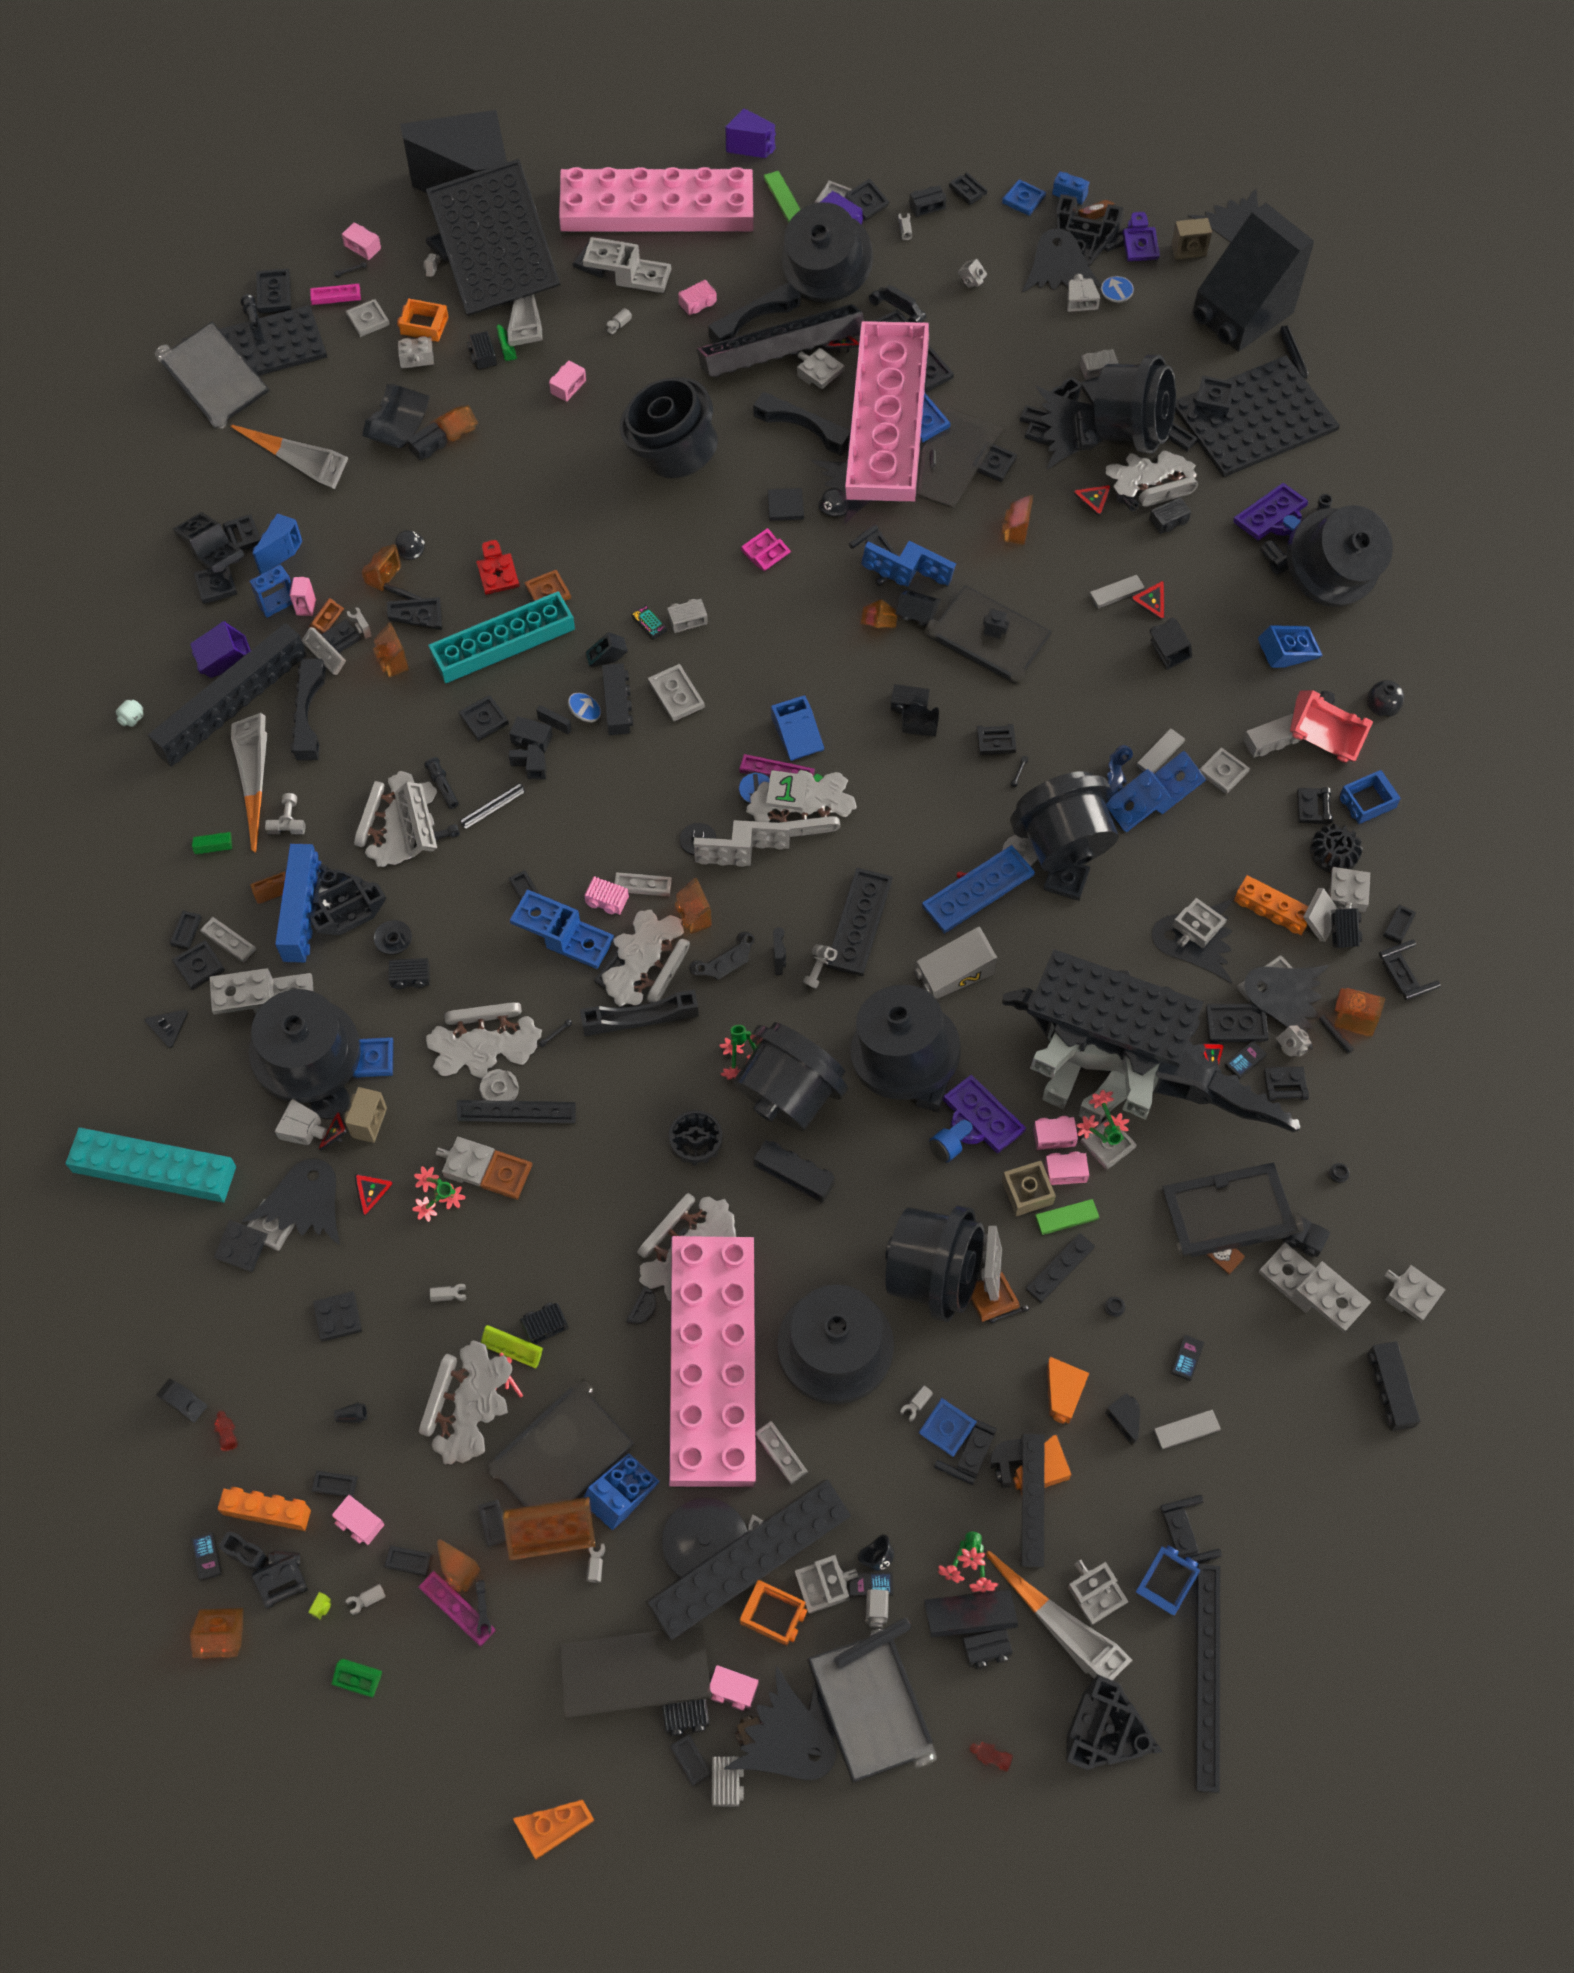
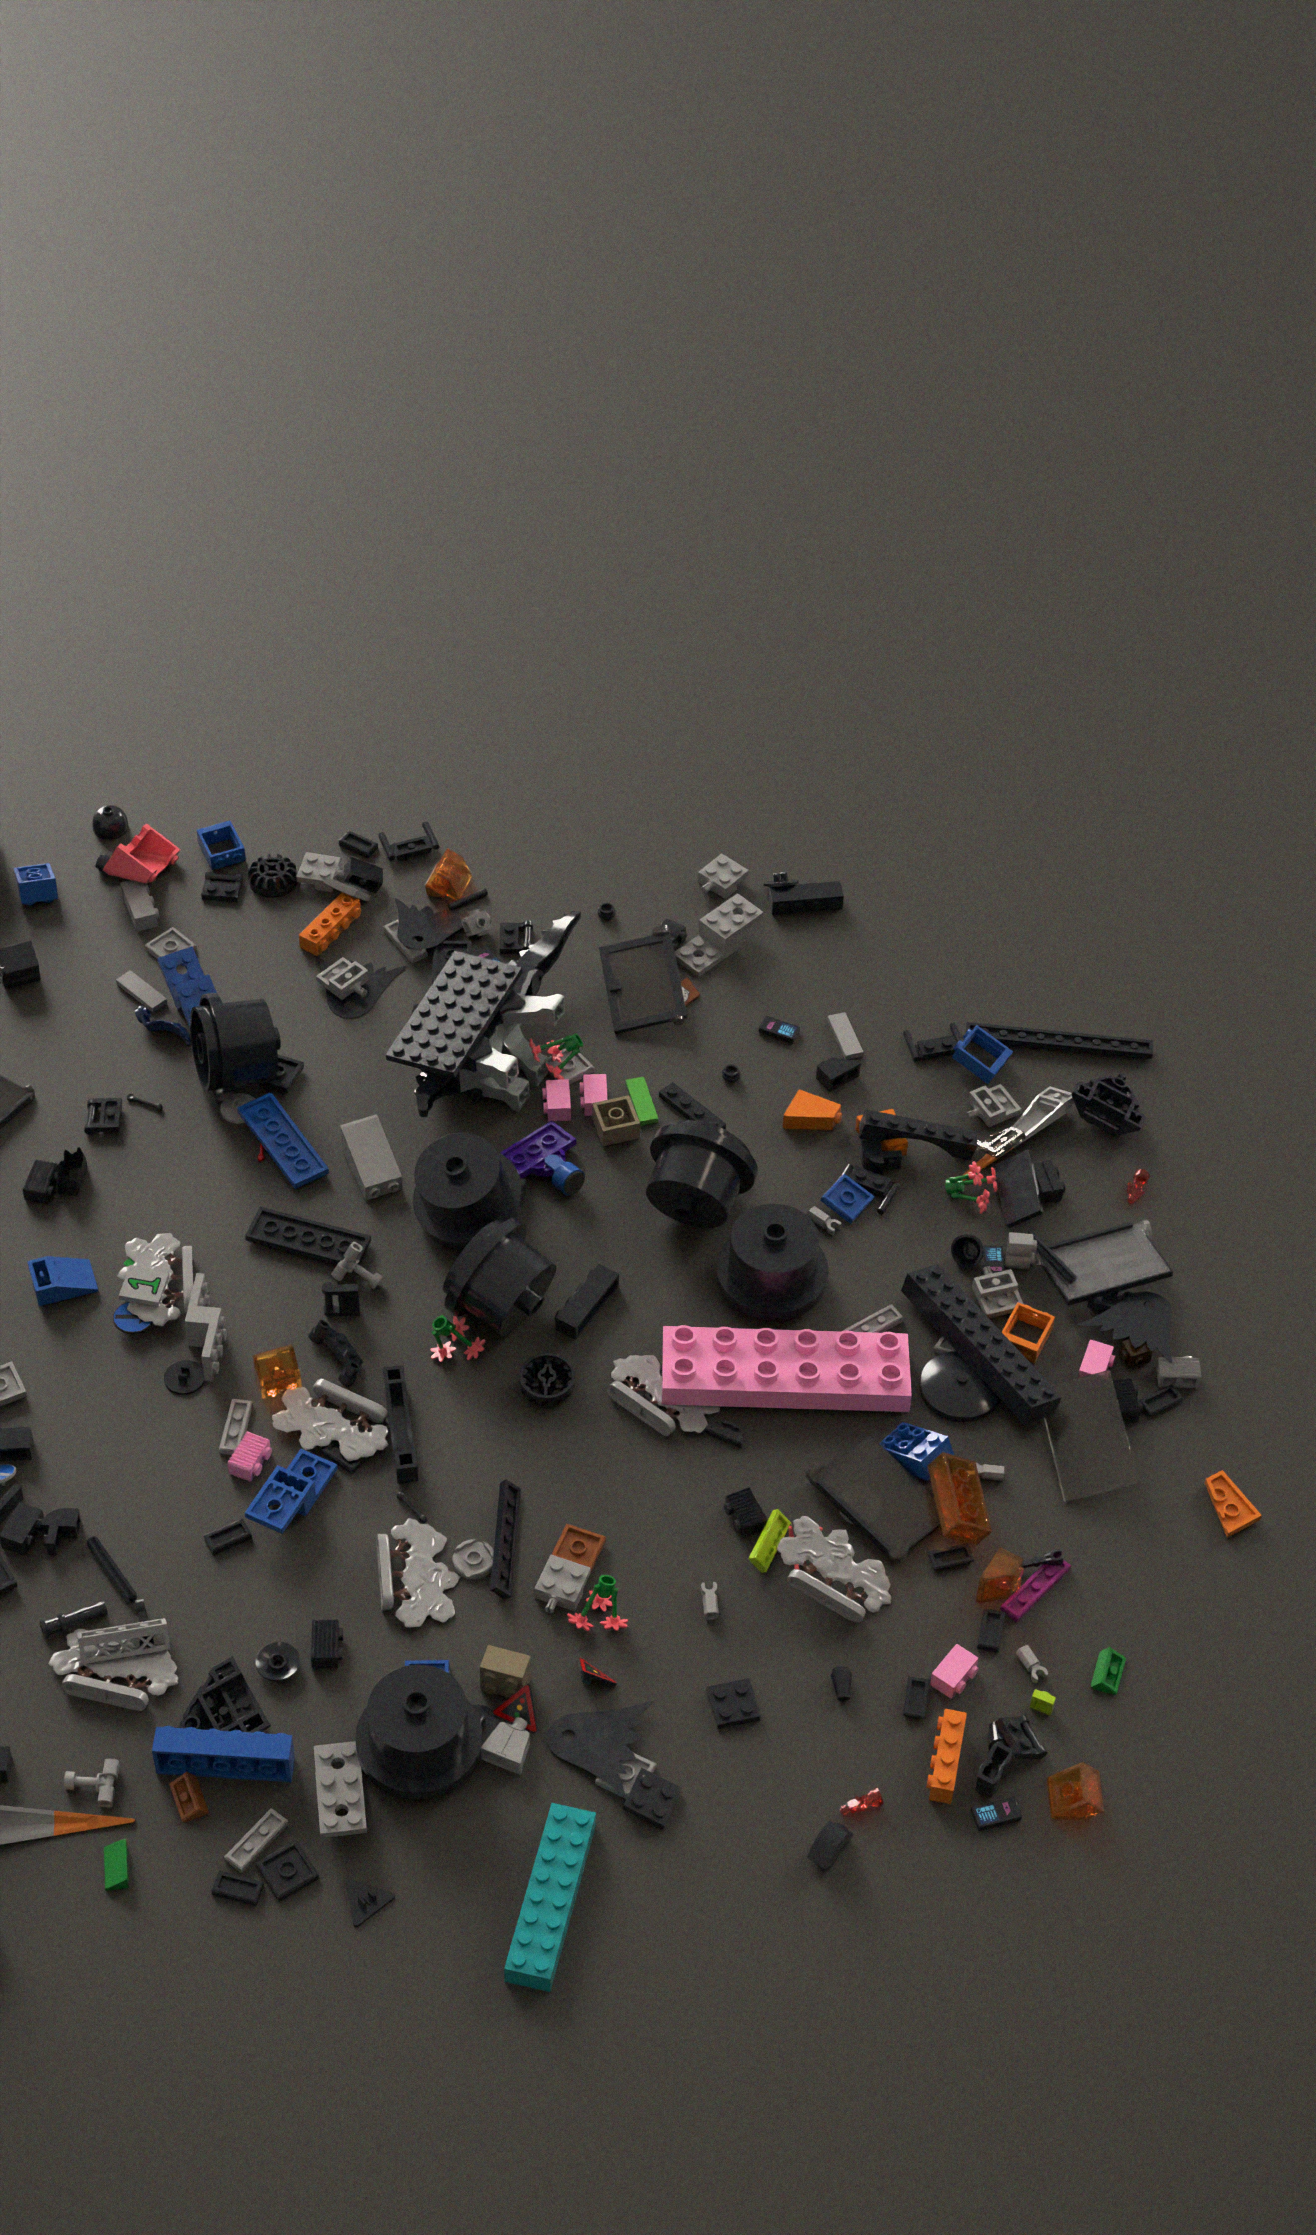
camera: 90 degrees left, 15 degrees down
(762, 765) = (103, 1312): magenta tile -> none
(1036, 1595) = (1001, 1142): none -> clear smoke wing
(1410, 1356) = (780, 882): none -> black piece

